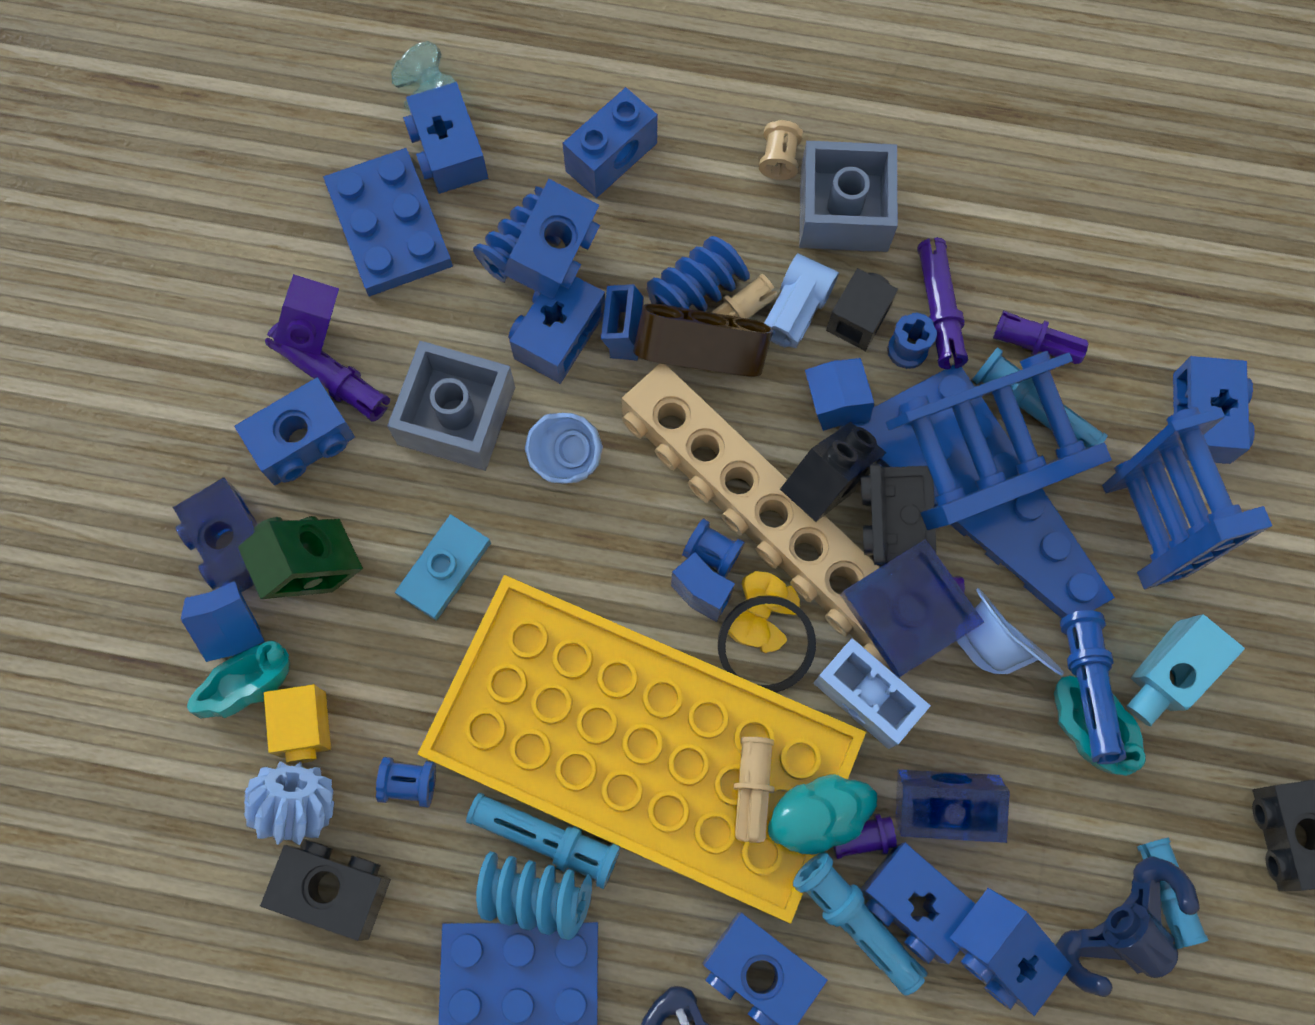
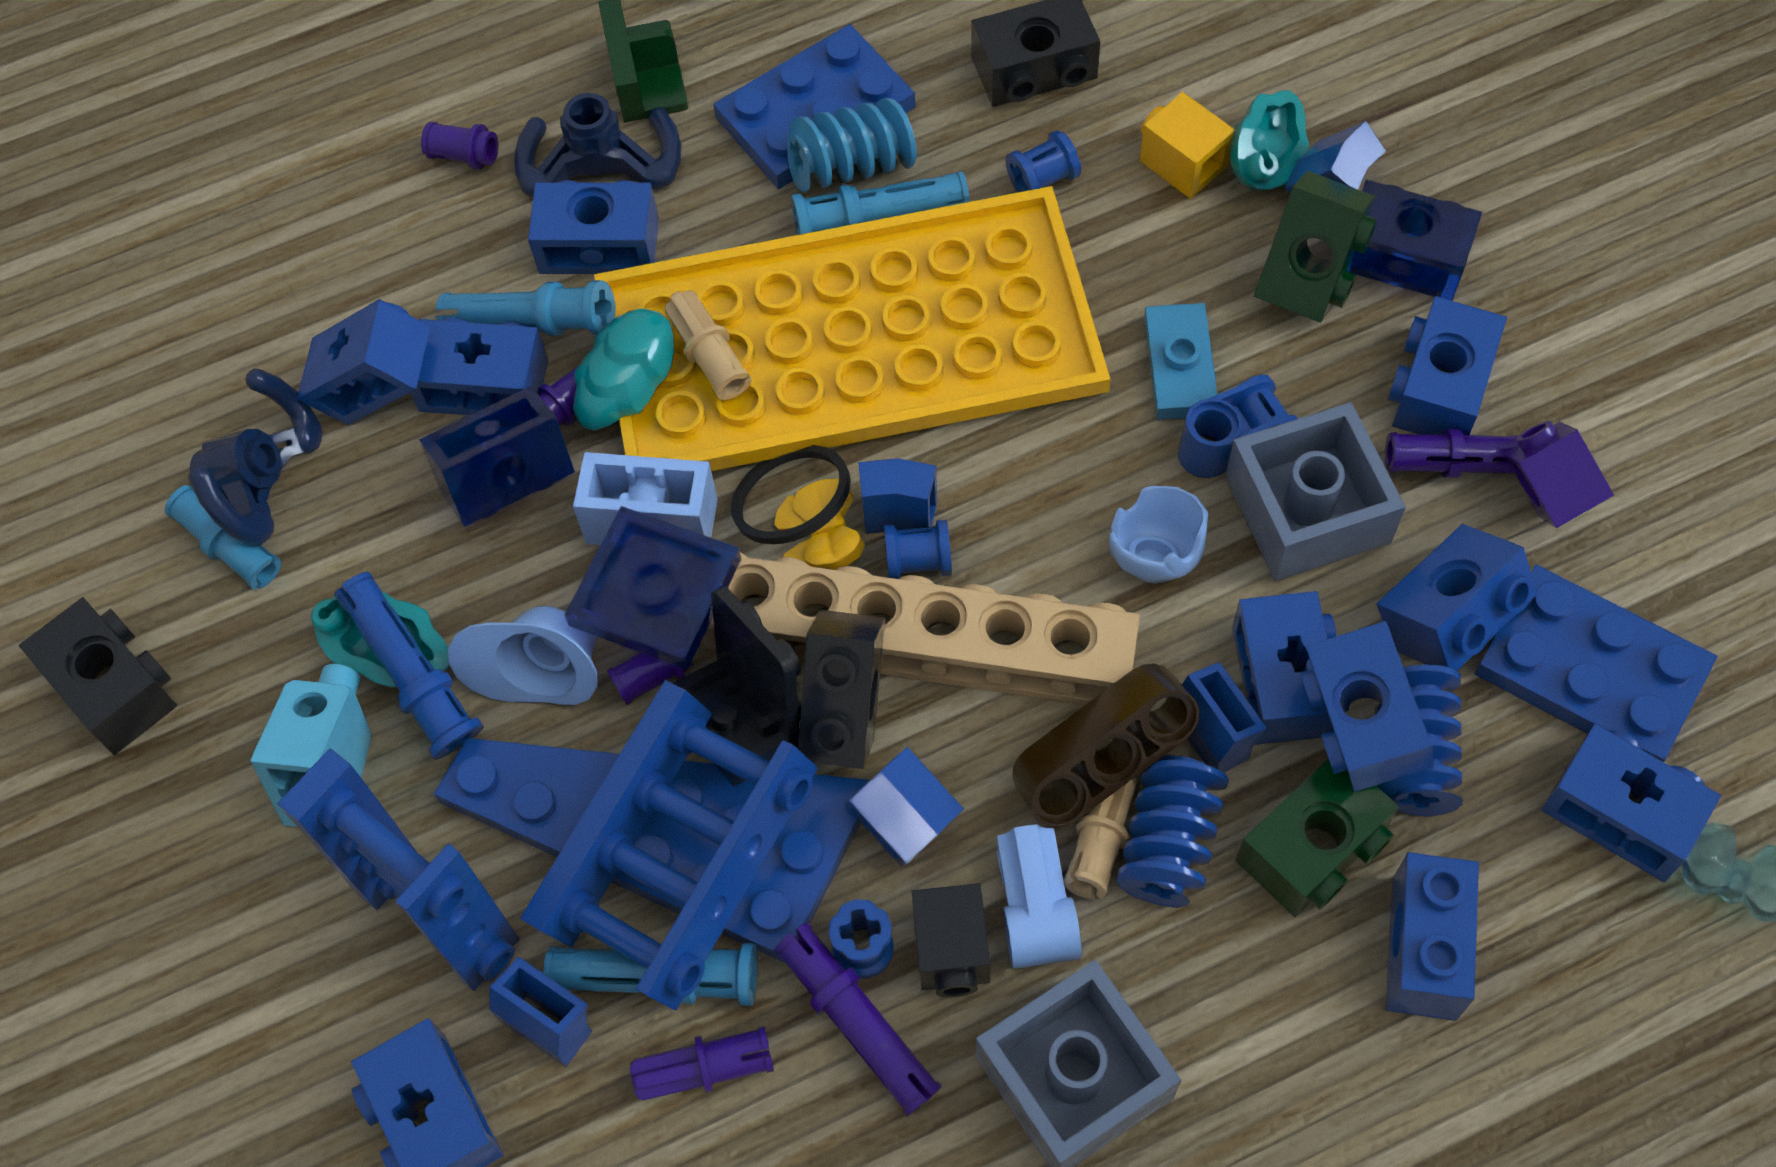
camera: 150 degrees right, 10 degrees down
(288, 803) = (1145, 83): light blue gear -> none
(407, 302) = (1458, 598): none -> blue brick
(444, 488) = (1227, 417): none -> blue piece
(641, 244) = (1294, 868): none -> dark green brick
(781, 150) = (1238, 1111): tan bush -> none
(1128, 414) = (508, 1006): none -> blue piece

